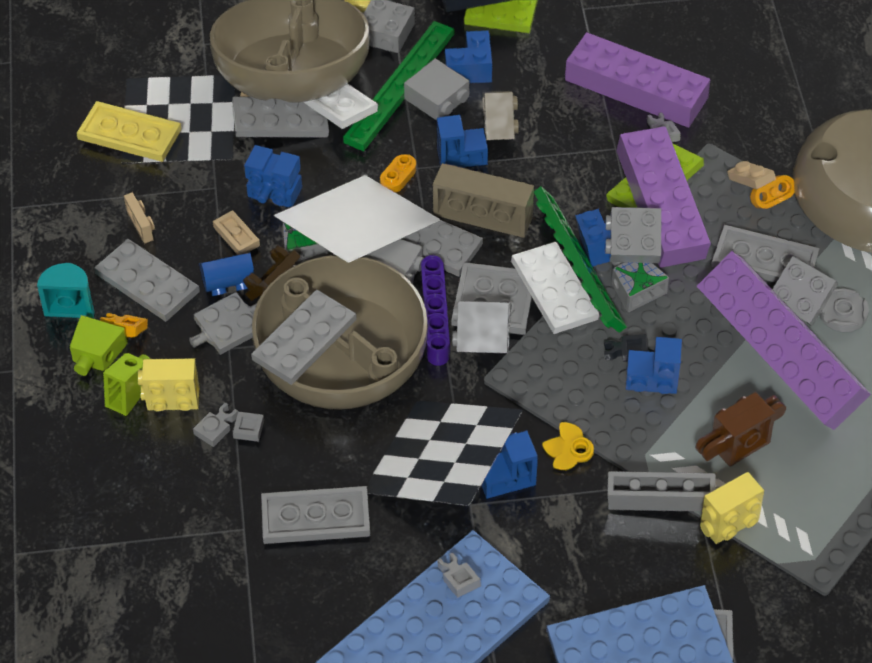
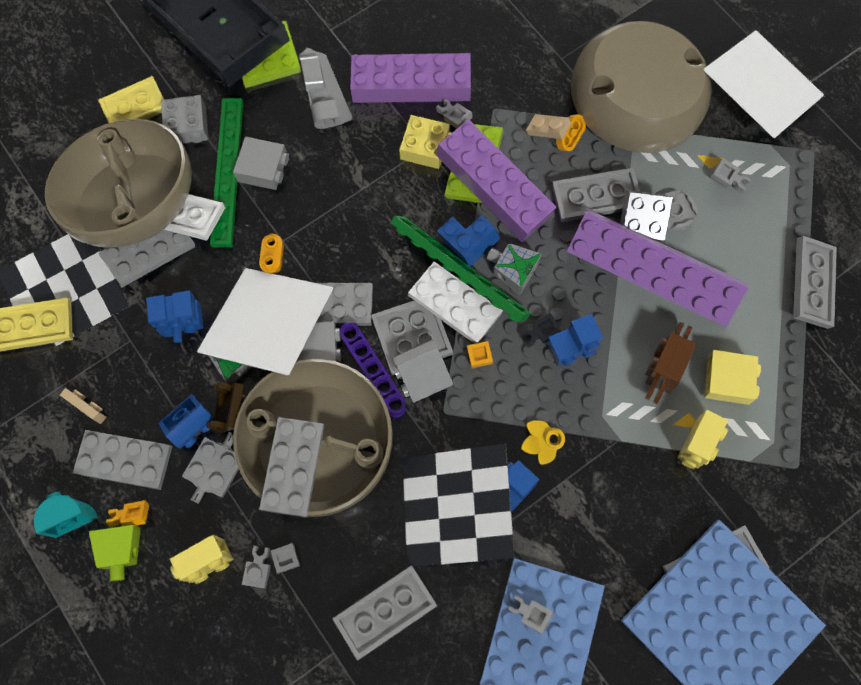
camera: 25 degrees left, 20 degrees up
(121, 383) = (158, 575): lime torso -> none
(236, 233) = (172, 378): tan plate -> none
(458, 146) = (309, 206): blue brick -> none
(474, 60) = (276, 121): blue brick -> none
(483, 200) = (356, 250): dark tan brick -> none
(499, 115) = (322, 159): dark tan brick -> none
(540, 56) = (324, 93): none -> light grey panel
(550, 340) = (479, 354): none -> light orange plate
(603, 138) = (422, 141): none -> light yellow brick
(634, 235) = (500, 233): light grey brick -> none
(658, 490) = (640, 450): light grey brick -> none
(802, 473) = (732, 377): none -> light yellow brick

